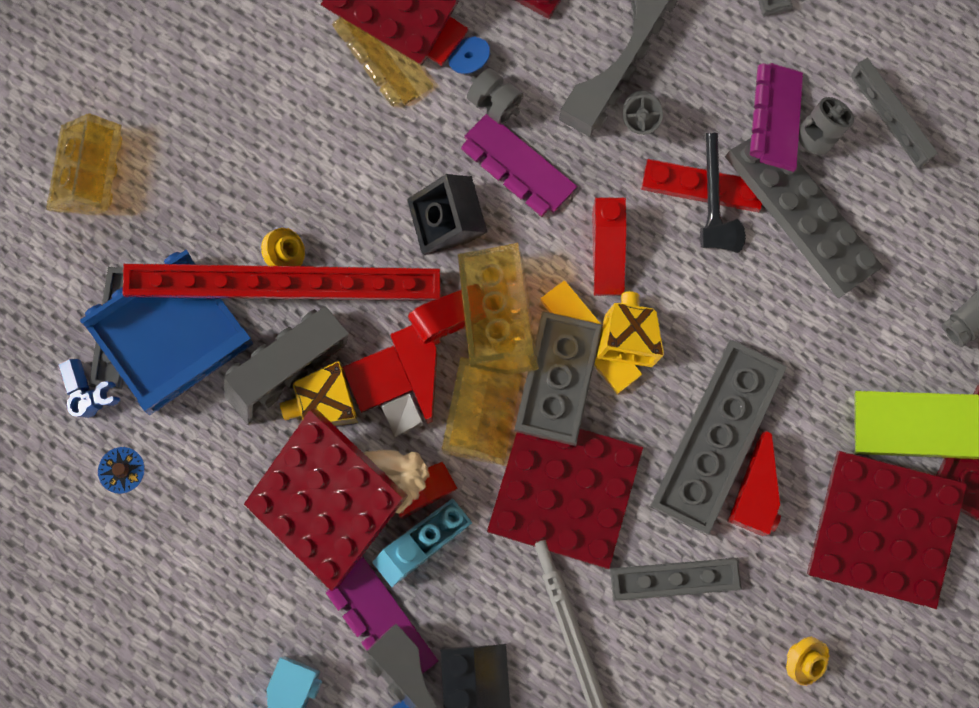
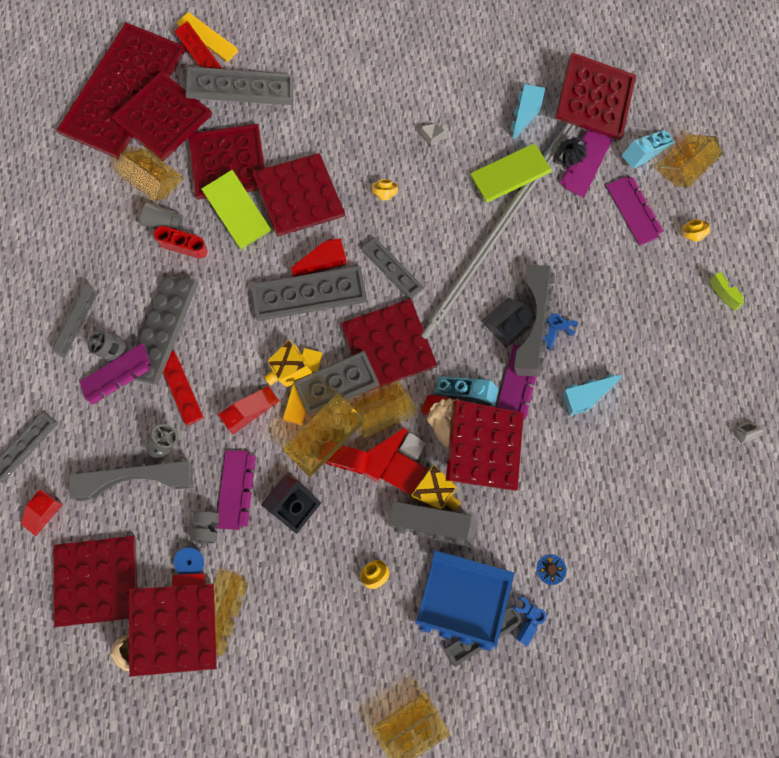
camera: 125 degrees left, 5 degrees down
(280, 282) = (395, 559): red plate -> none
(716, 234) = (202, 362): black piece -> none
(929, 307) = (175, 236): none -> red beam

